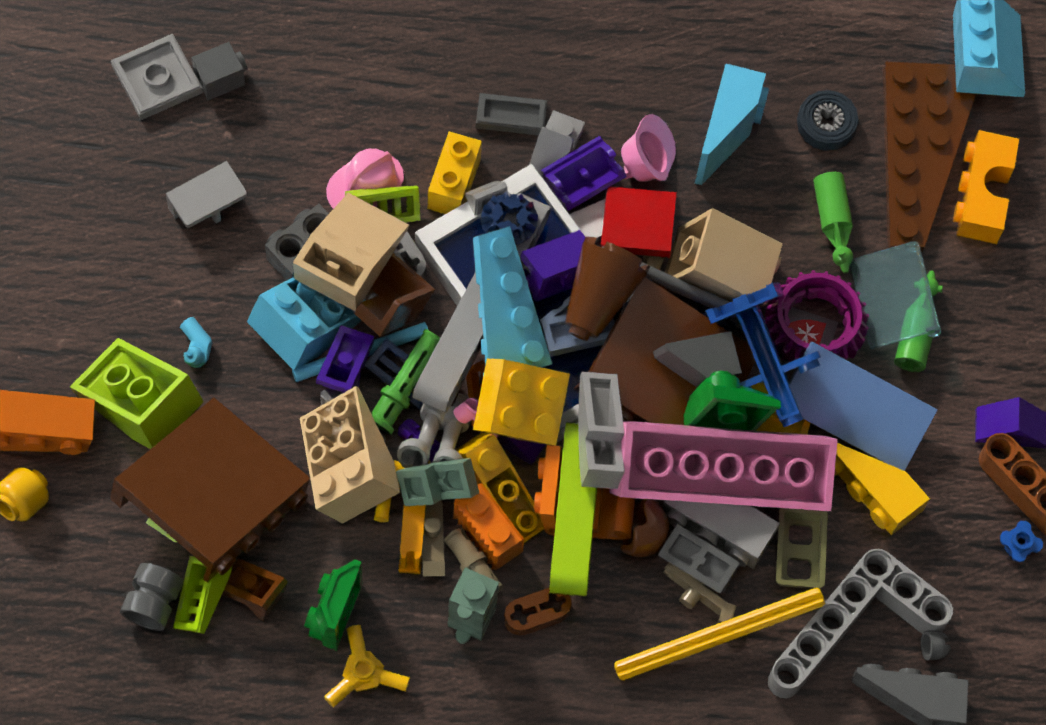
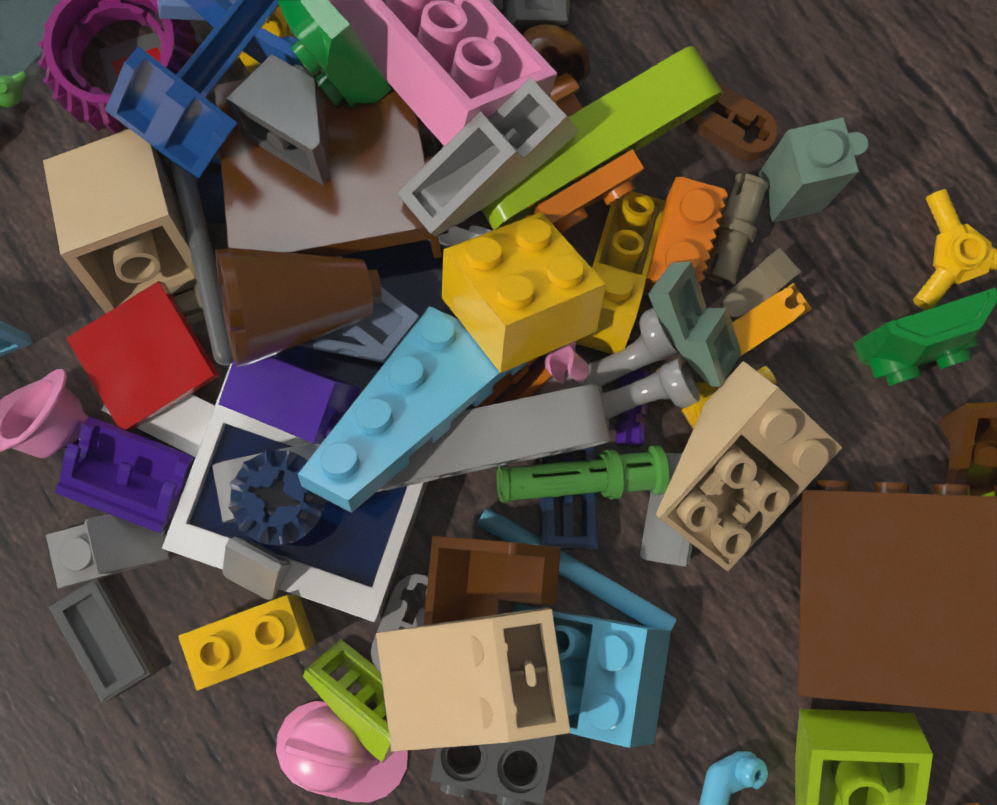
camera: 120 degrees left, 15 degrees up
(345, 360) = (620, 570): dark purple slope -> none

